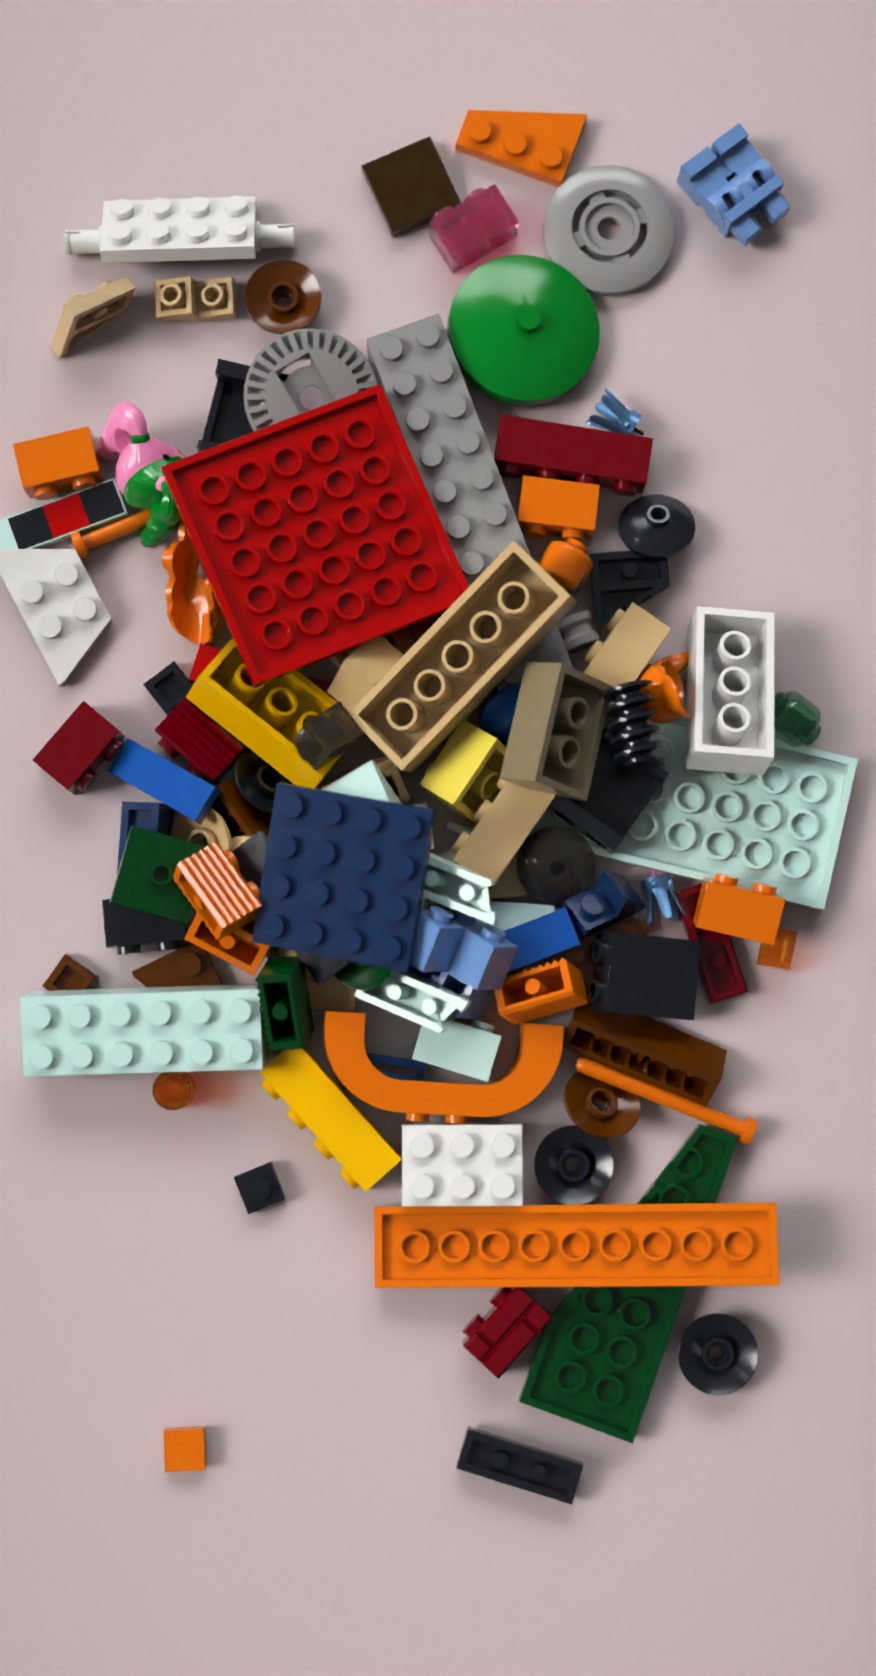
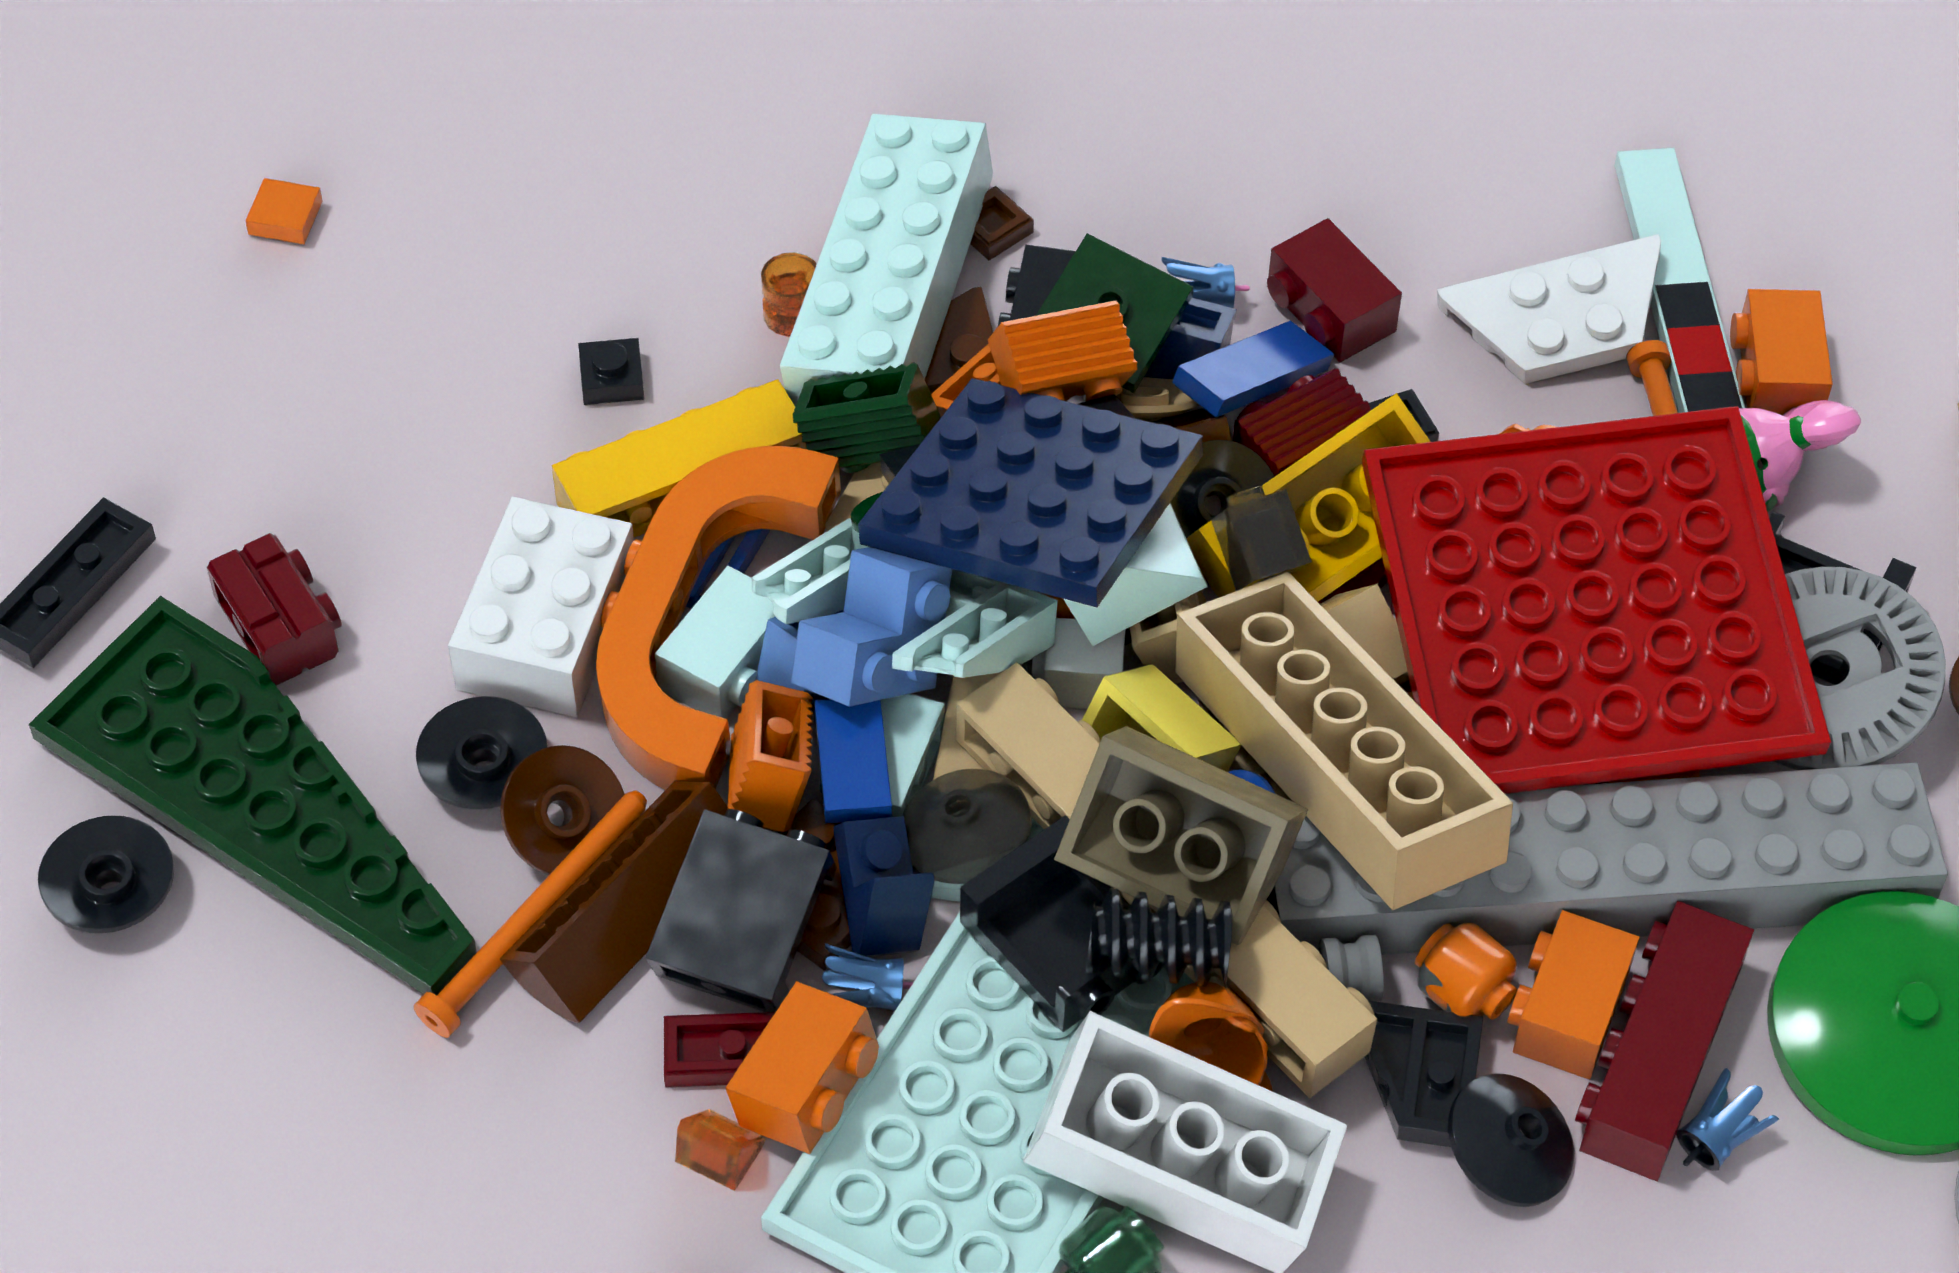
camera: 110 degrees right, 30 degrees down
(94, 825) = (1209, 283): none -> flat silver piece
(576, 1245) = (346, 731): orange plate -> none

